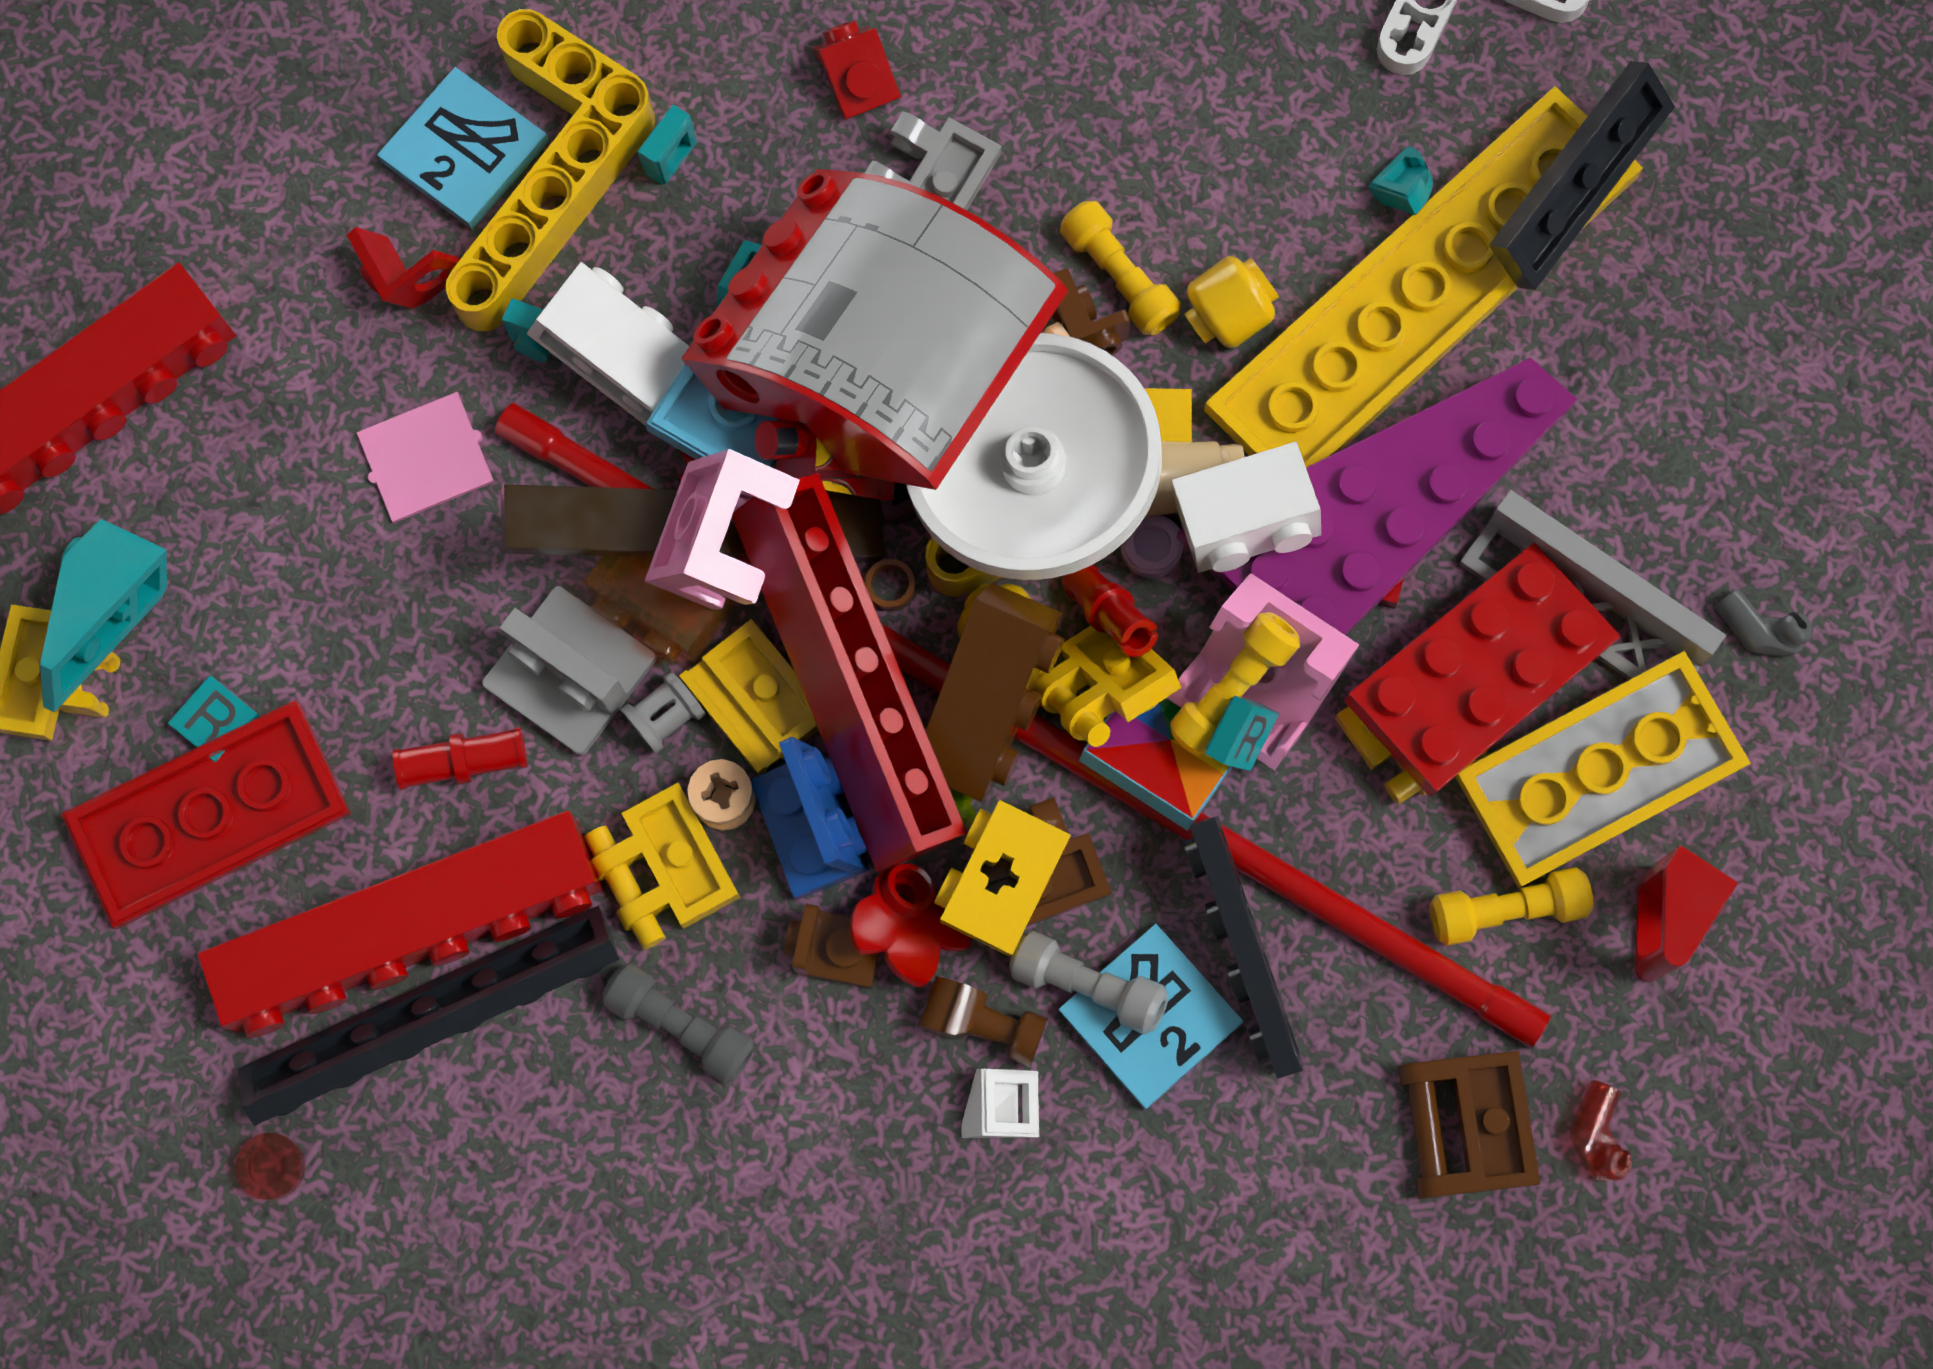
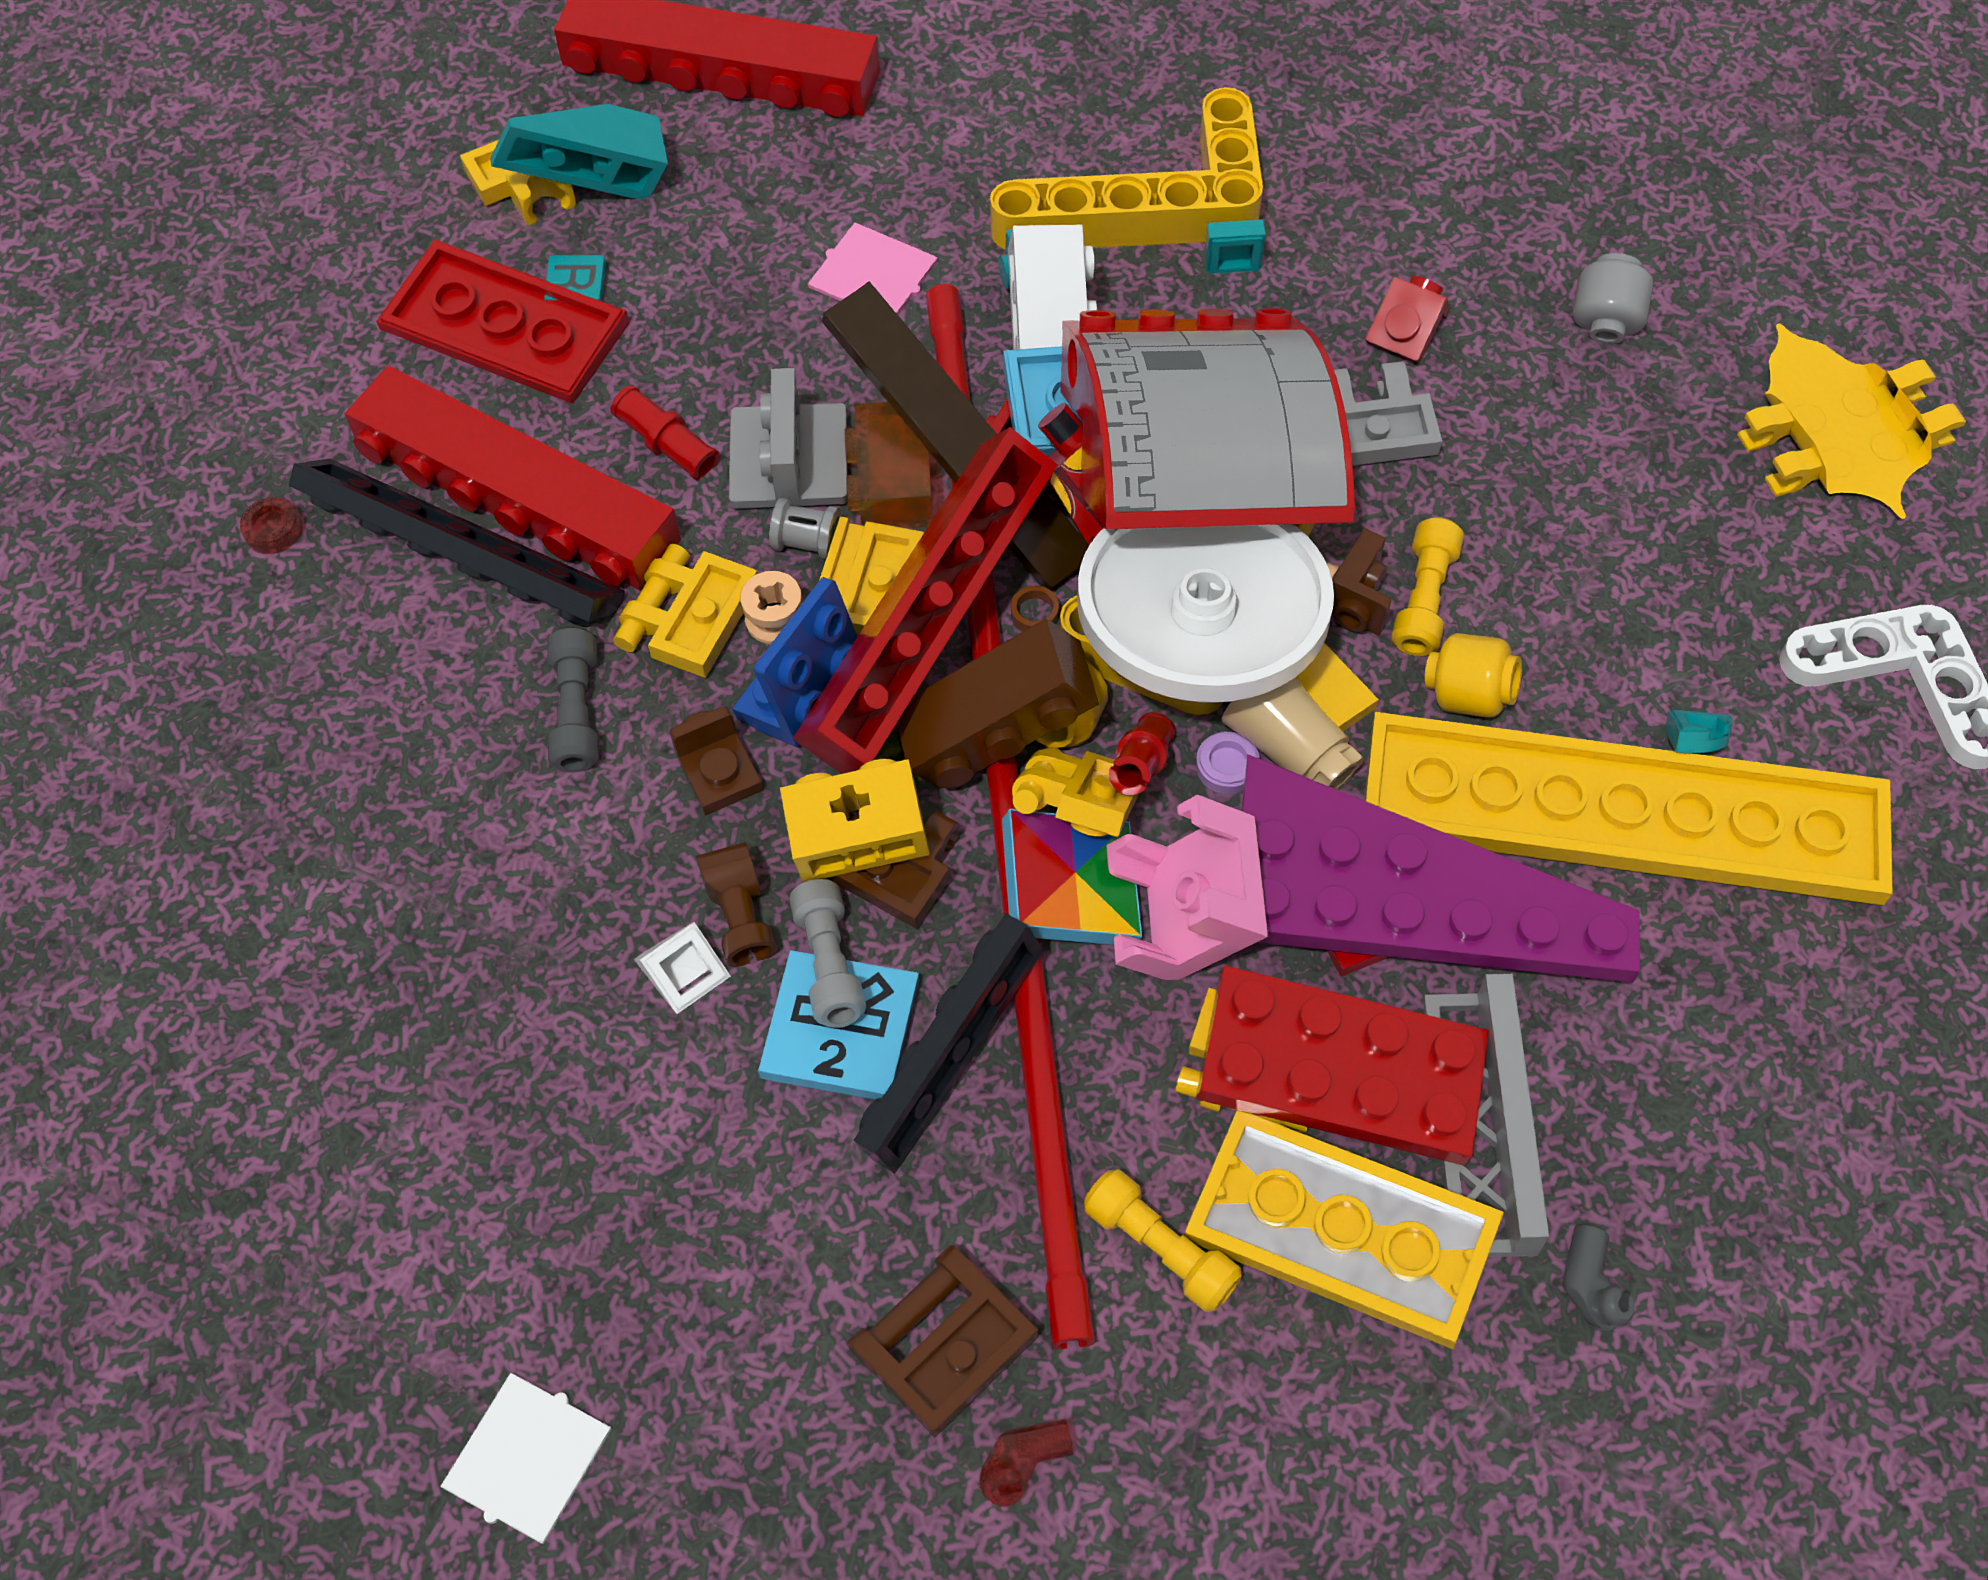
camera: 50 degrees right, 15 degrees down
(387, 274) = (986, 155): red bracket -> none
(463, 148) = (1117, 136): medium azure tile -> none
(689, 547) = (945, 411): panel -> none
(901, 929) = (756, 804): red plate -> none
(1241, 733) = (1118, 906): teal tile -> none
(1248, 508) = (1304, 774): white brick -> none
(1268, 644) = (1202, 859): yellow piece -> none
(1582, 175) = (1832, 840): black plate -> none
(1676, 910) = (1263, 1368): red tile -> none

